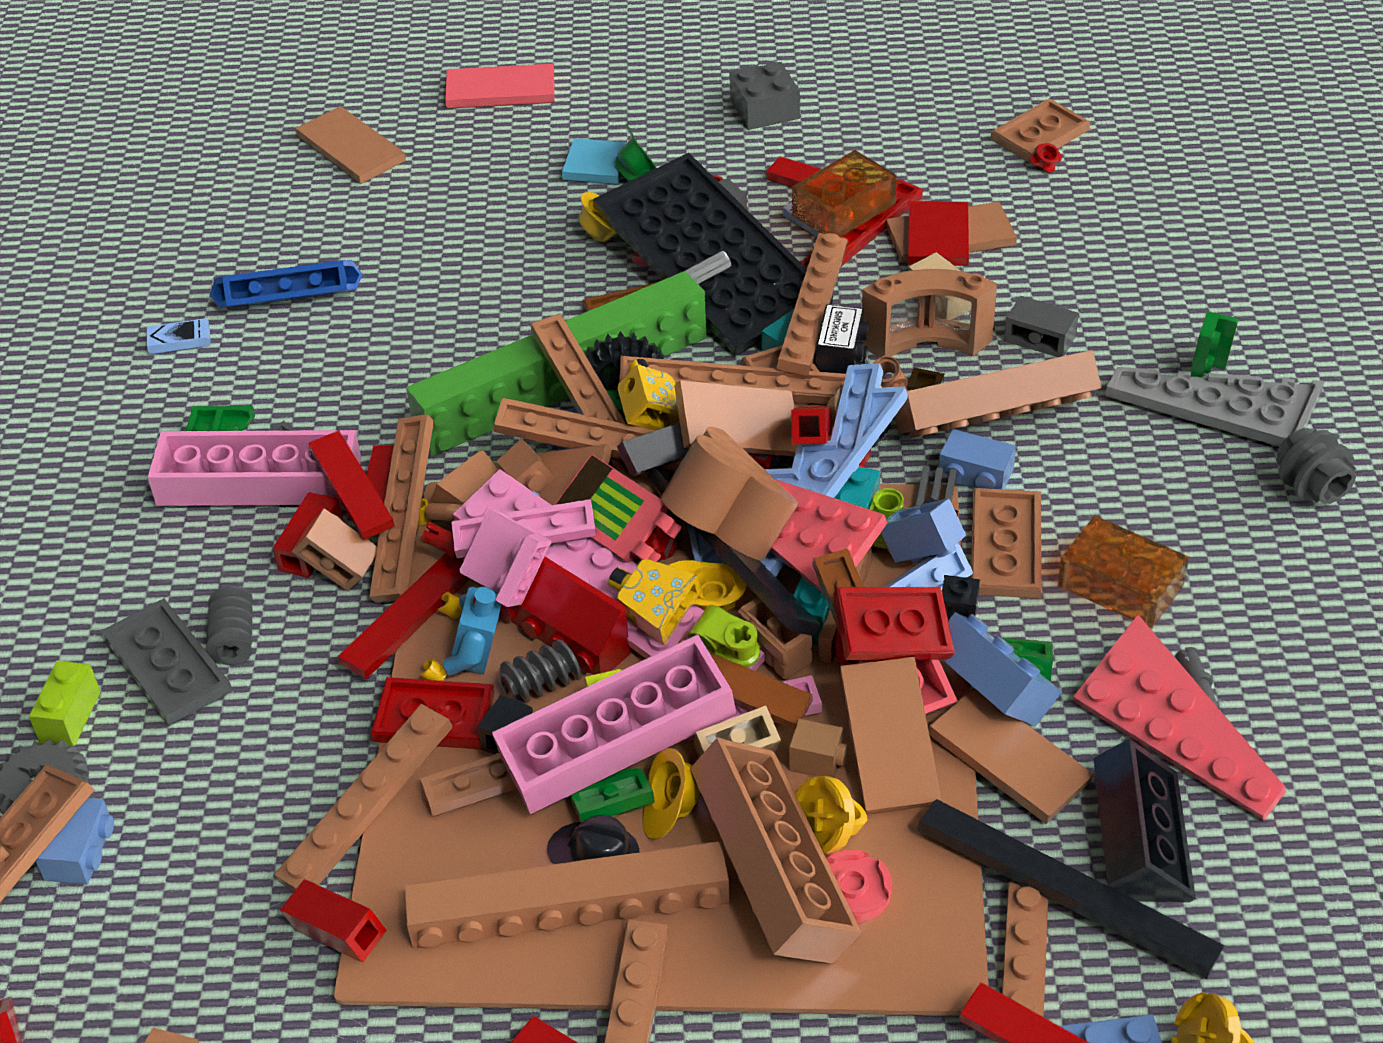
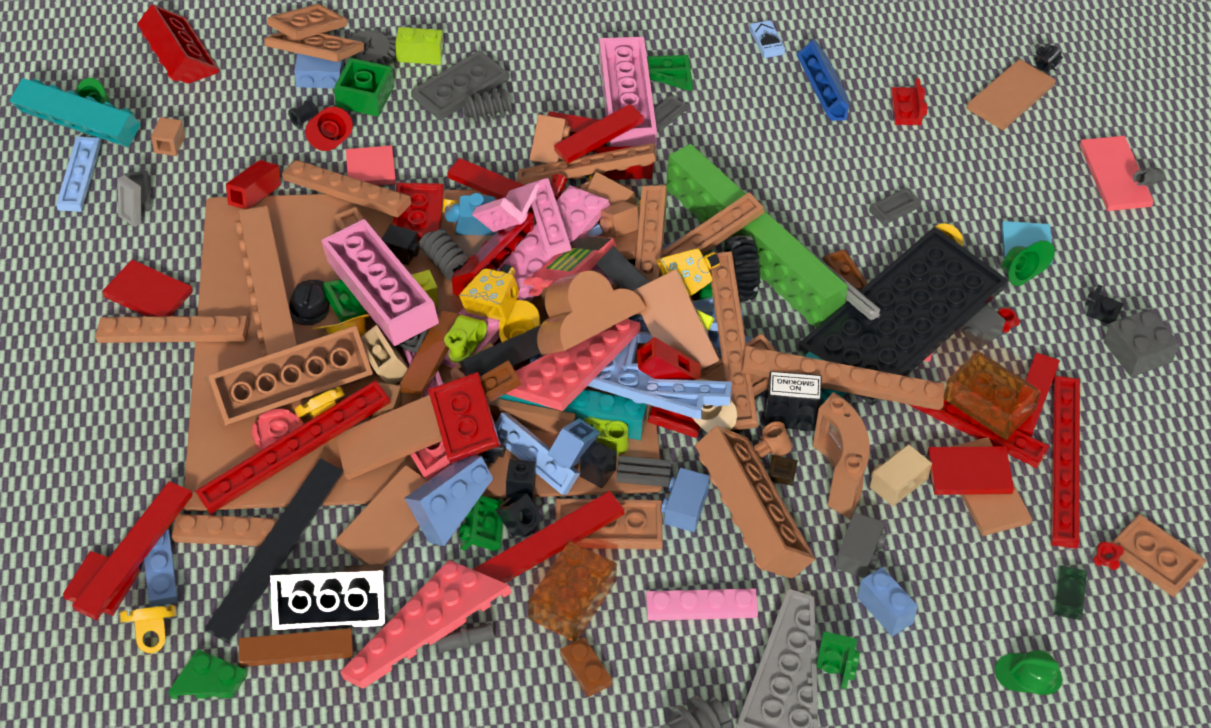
camera: 80 degrees right, 5 degrees up
(144, 771) = (364, 87): none -> green brick
(169, 863) = (302, 113): none -> black bush
(228, 819) = (328, 128): none -> red piece
(306, 103) = (1048, 58): none -> black gear
(309, 778) = (371, 165): none -> coral tile
(344, 221) = (908, 104): none -> red bracket
(514, 255) = (894, 206): none -> dark grey tile
(524, 55) = (1148, 176): none -> dark grey pin
(702, 119) = (1102, 307): none -> black bracket
(904, 859) = (292, 447): none -> red tile
(936, 174) = (1065, 463): none -> red tile
(1008, 613) = (510, 511): none -> black brick
(1045, 589) = (552, 539): none -> red tile
(1090, 191) = (1070, 592): none -> clear green tile
(1120, 312) = (887, 601): none -> medium blue brick
(1124, 468) = (701, 604): none -> bright pink plate
(1194, 229) = (1029, 672): none -> green piece
(1224, 573) = (586, 667): none -> dark orange plate
(1225, 872) = (295, 647): none -> dark orange tile
(1286, 976) = (208, 677): none -> green wing

